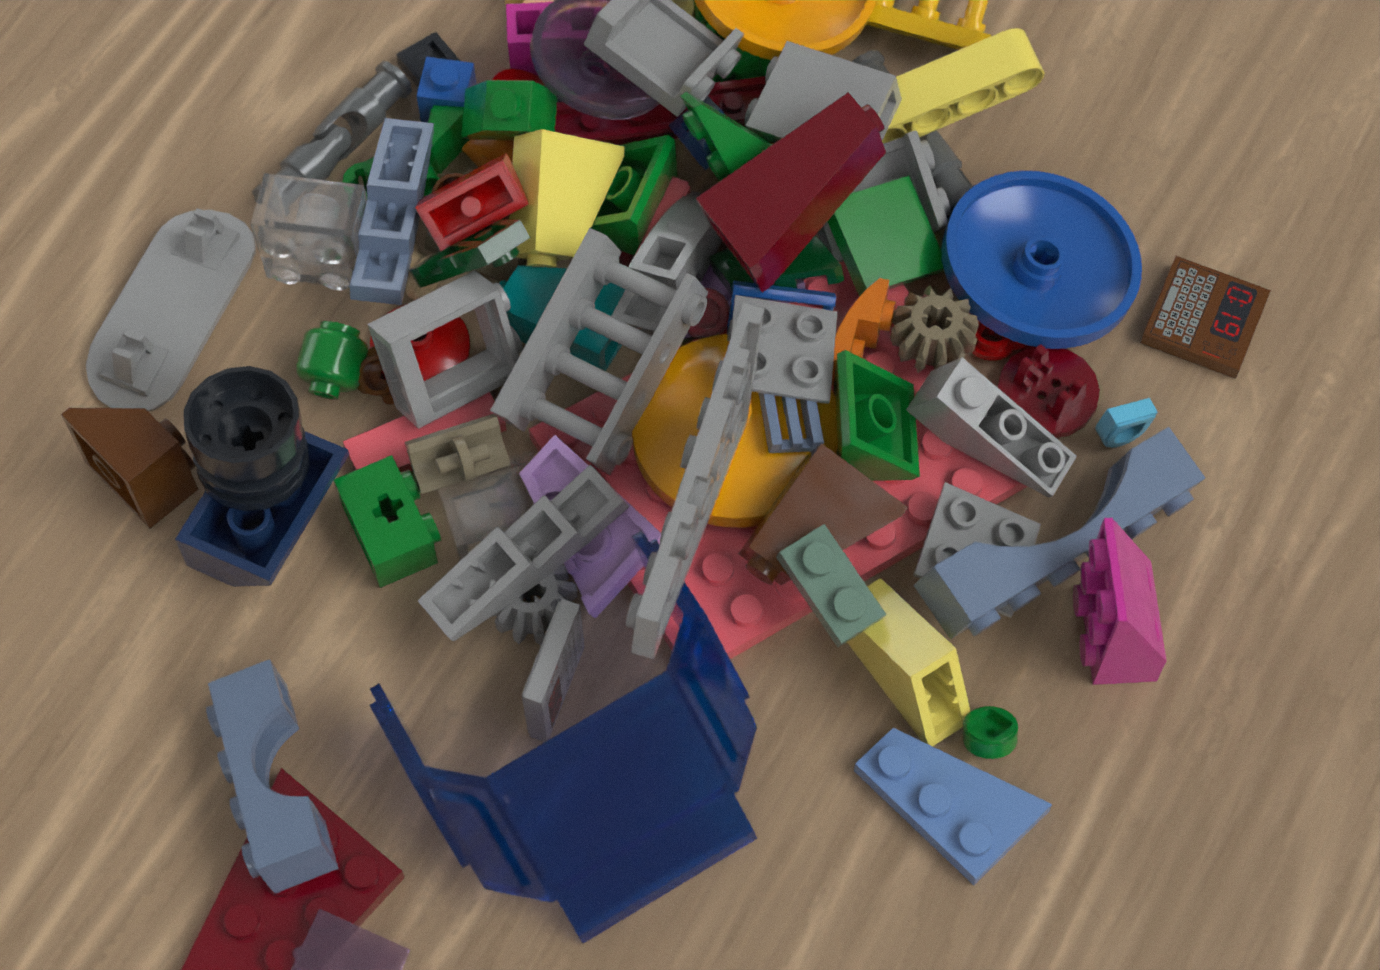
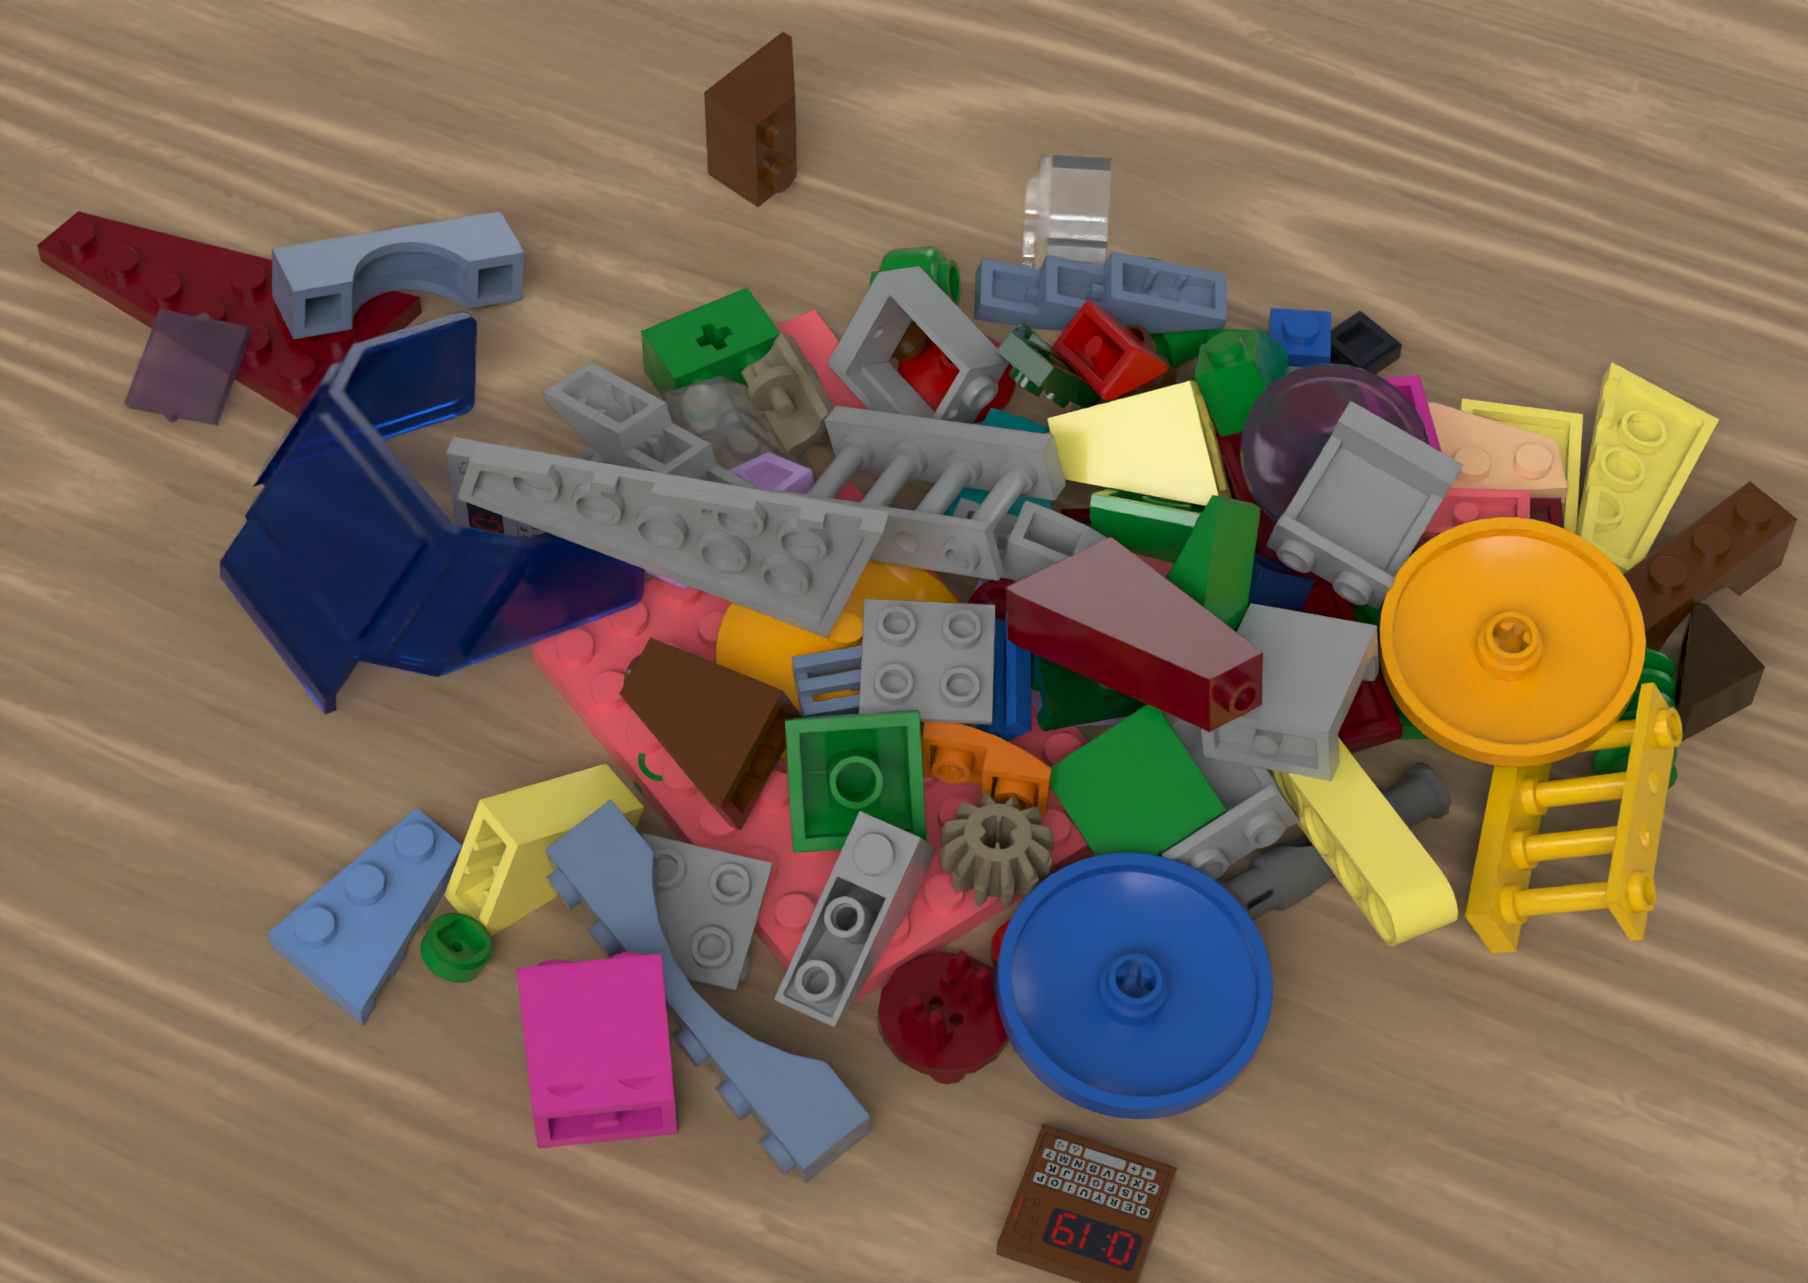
camera: 85 degrees right, 10 degrees down
(169, 309) = (962, 144): light grey piece -> none
(246, 438) = (750, 167): black wheel -> none
(254, 544) = (720, 225): dark blue slope -> none
(363, 111) = (1185, 243): dark grey piece -> none
(831, 585) = (605, 725): sand green plate -> none
(1125, 422) = (894, 1091): medium azure tile -> none

